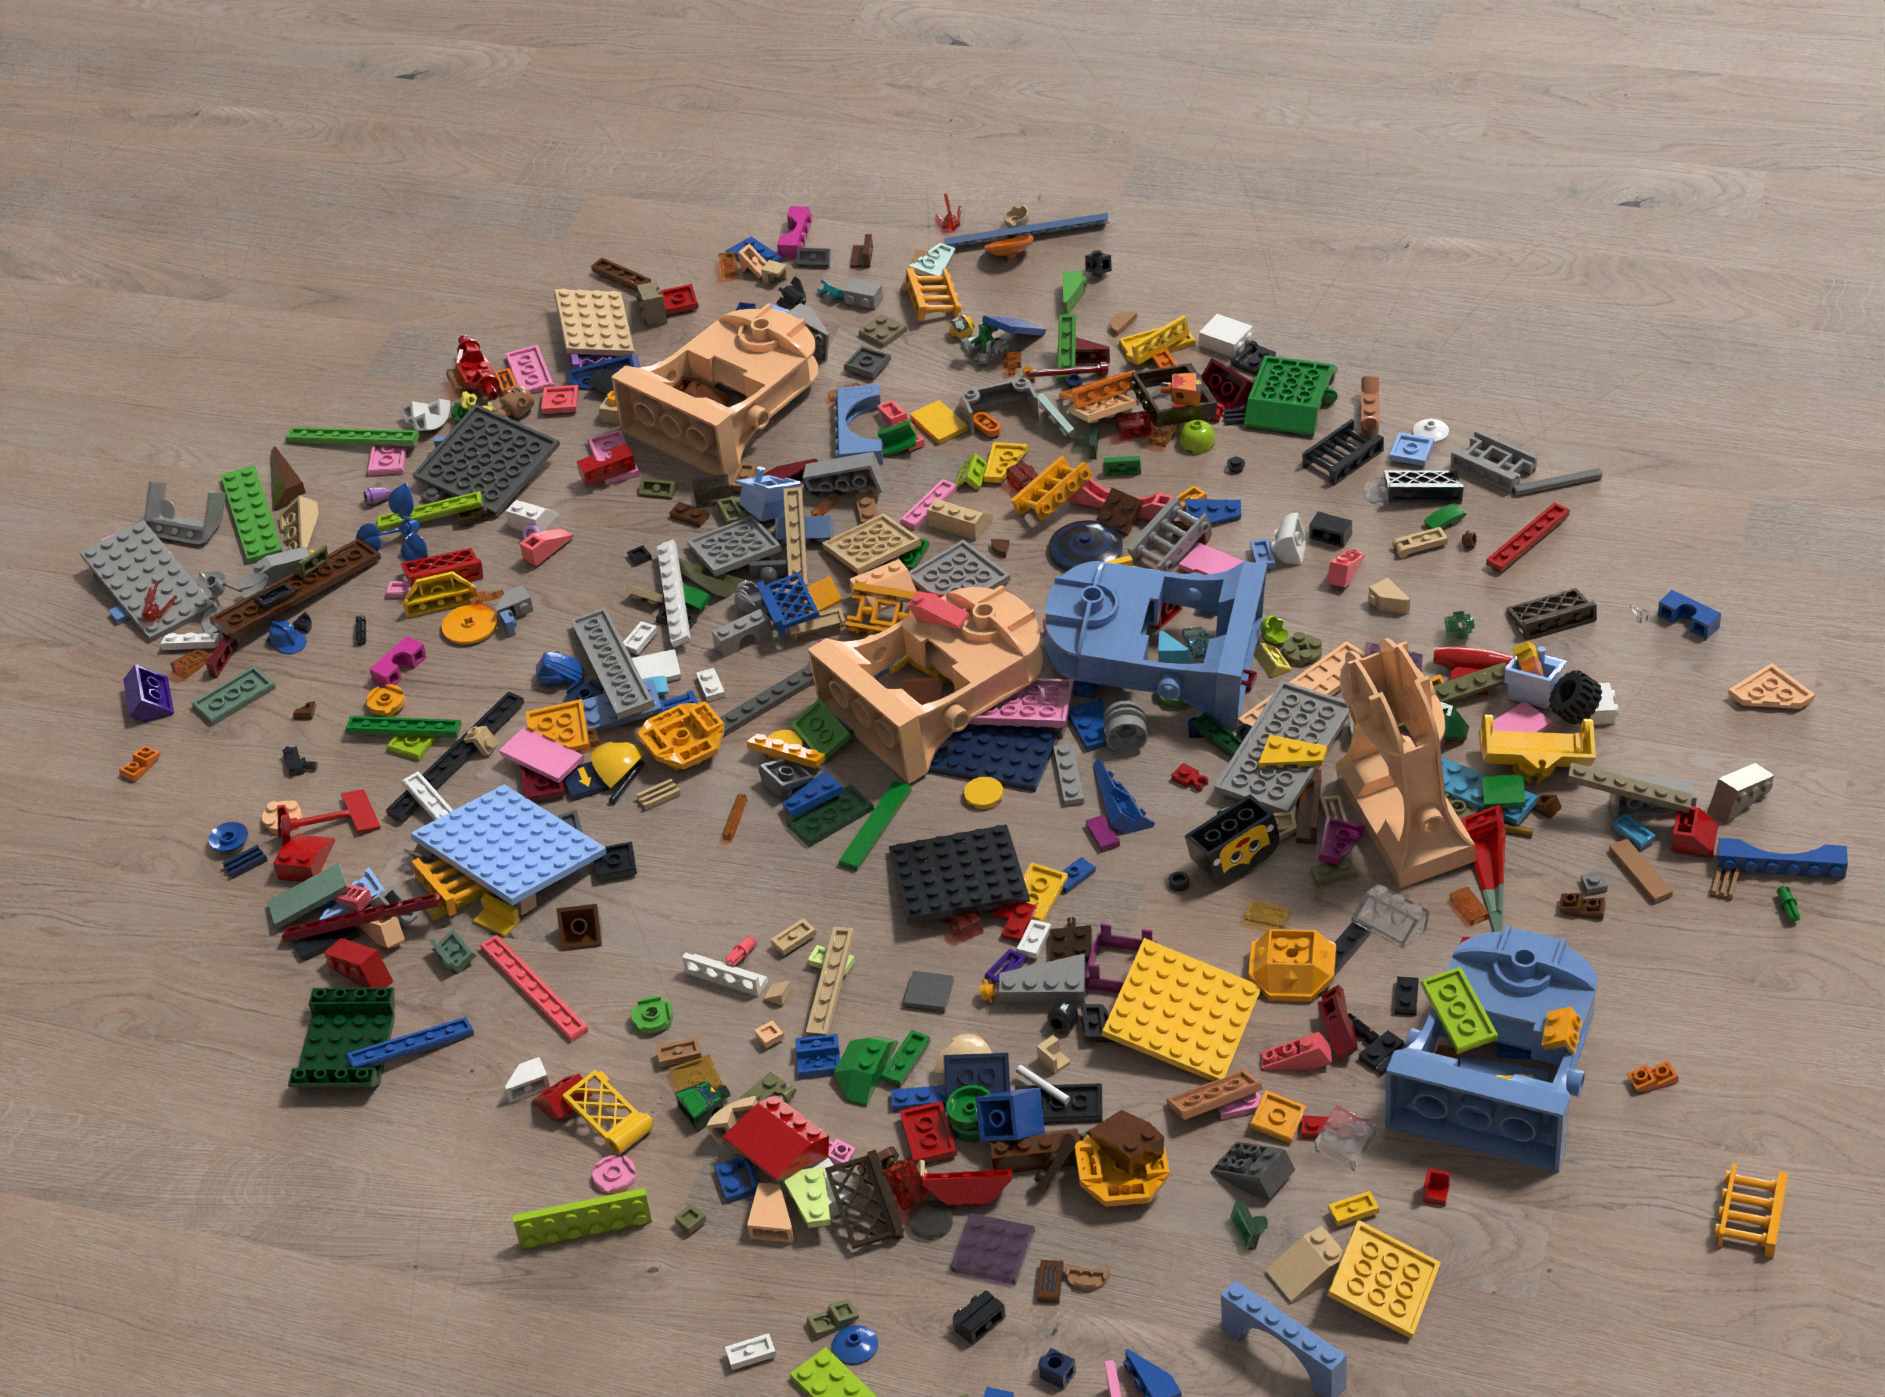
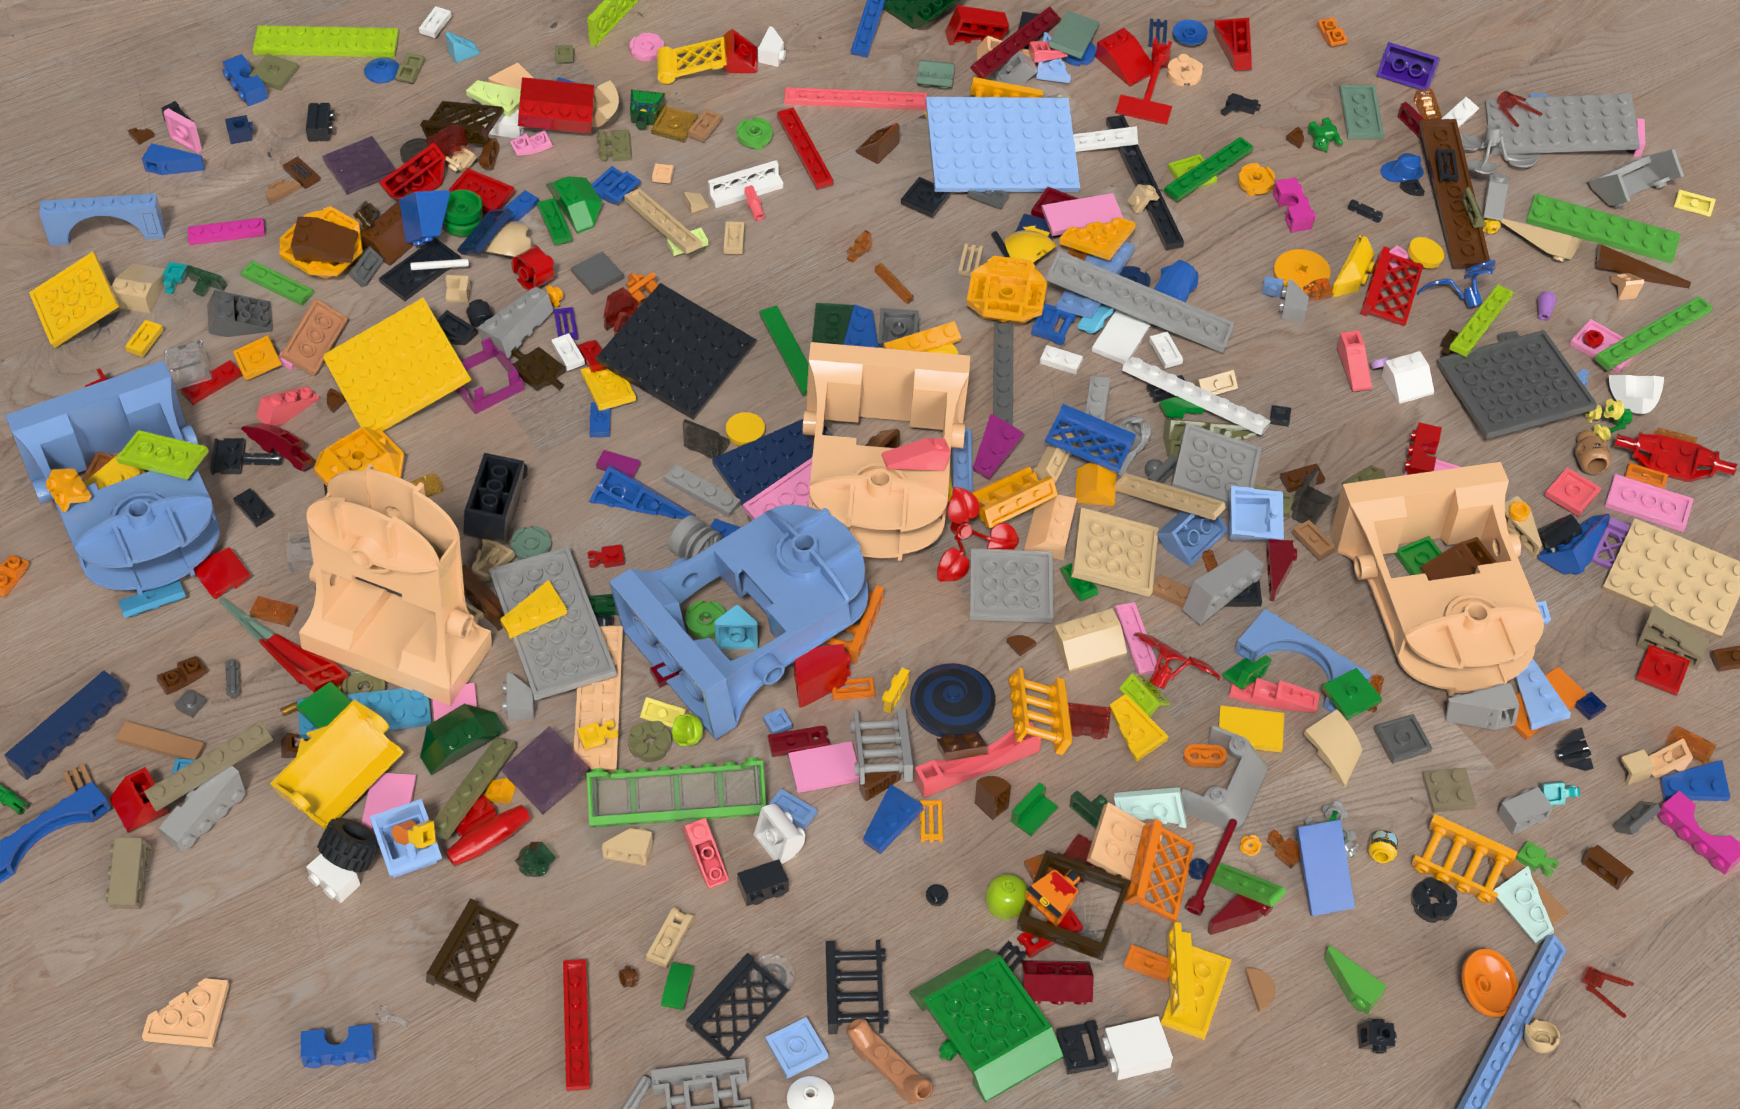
camera: 125 degrees right, 10 degrees up
(174, 487) = (1694, 203): none -> light yellow slope
(219, 796) = (1235, 41): none -> red wedge
(288, 694) = (1324, 134): none -> green animal
(312, 463) = (1628, 285): none -> light nougat slope
(380, 573) = (1425, 252): none -> yellow tile
(392, 454) = (1593, 338): none -> red plate
(635, 971) = (805, 148): none -> red plate
(716, 857) = (861, 245): none -> clear orange plate
(765, 1298) = (460, 47): none -> medium azure slope
(866, 382) = (1351, 693): none -> green plate
(891, 279) = (1535, 858): none -> bright green plate
(910, 379) = (1336, 745): none -> tan slope
(916, 947) = (637, 286): none -> orange hips
(946, 469) = (1163, 672): none -> red plant
(955, 943) = (618, 302): none -> clear red slope
(978, 291) = (1436, 889): none -> black plate
(979, 1014) = (533, 268): none -> red brick
(1024, 799) = (704, 440): none -> clear smoke bracket
(1140, 472) = (992, 795): none -> reddish brown brick
(1177, 1270) = (226, 231): none -> dark pink plate
(1187, 1183) = (277, 283): none -> bright green tile
(1252, 1038) = (335, 400): none -> reddish brown tile
(1267, 1253) = (173, 273): none -> teal plate
(1326, 603) = (675, 794): none -> clear window
(1336, 659) = (593, 735): none -> yellow plate
(1546, 877) = (232, 678): none -> dark grey axle
(1703, 923) = (65, 725): none -> dark blue brick

